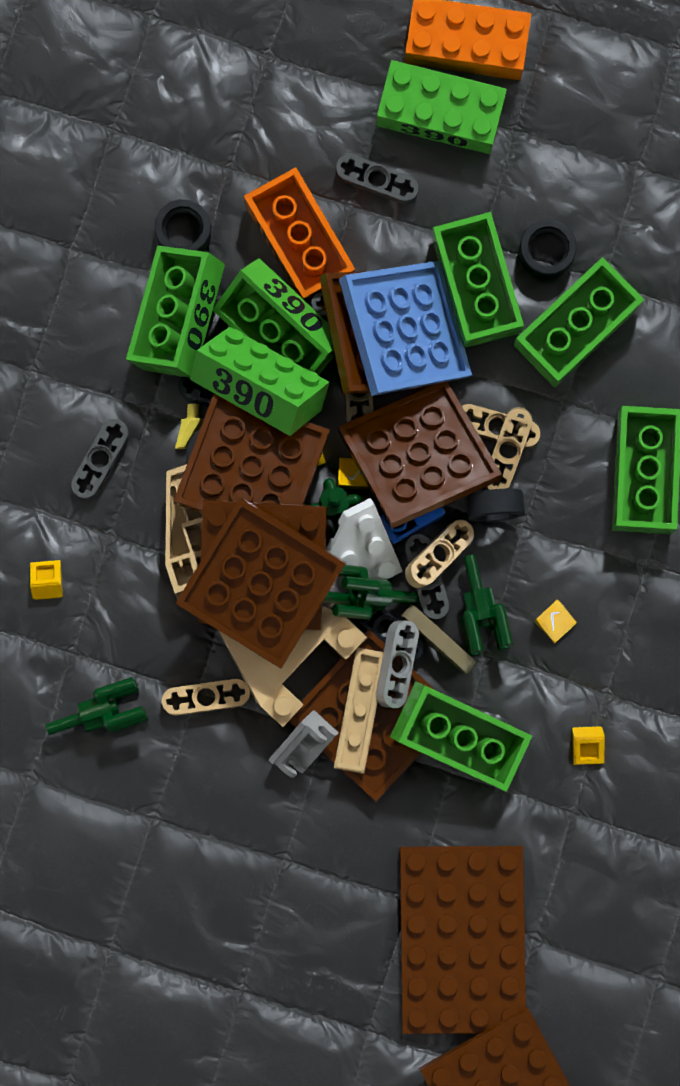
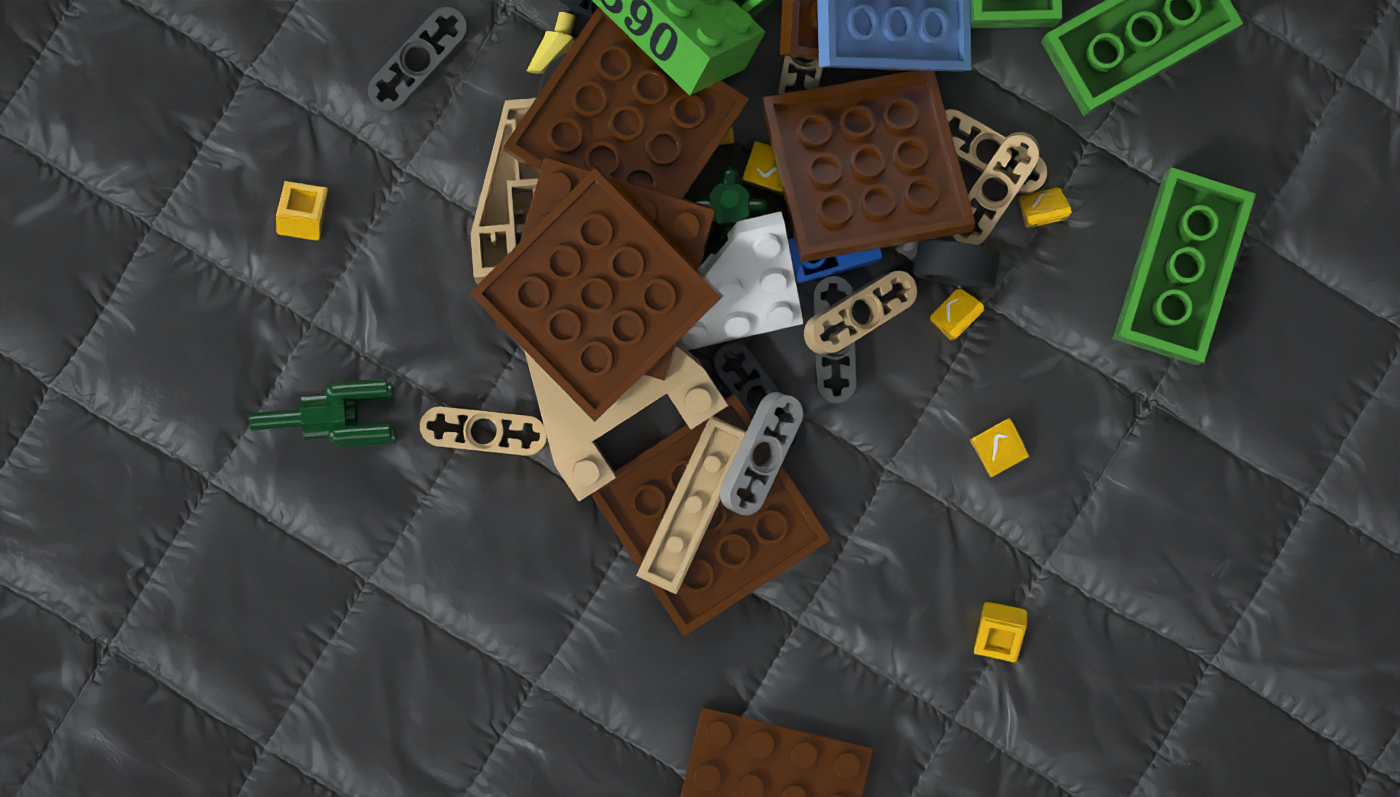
camera: 15 degrees right, 5 degrees up
(303, 744) = (602, 533): light grey hinge -> none
(365, 594) = (740, 345): dark green plant -> none
(439, 640) = (829, 432): dark tan beam -> none
(461, 736) = (824, 577): bright green brick -> none
(482, 612) = (899, 409): dark green plant -> none
(504, 539) = (956, 313): none -> yellow slope
(544, 454) = (1044, 207): none -> yellow slope

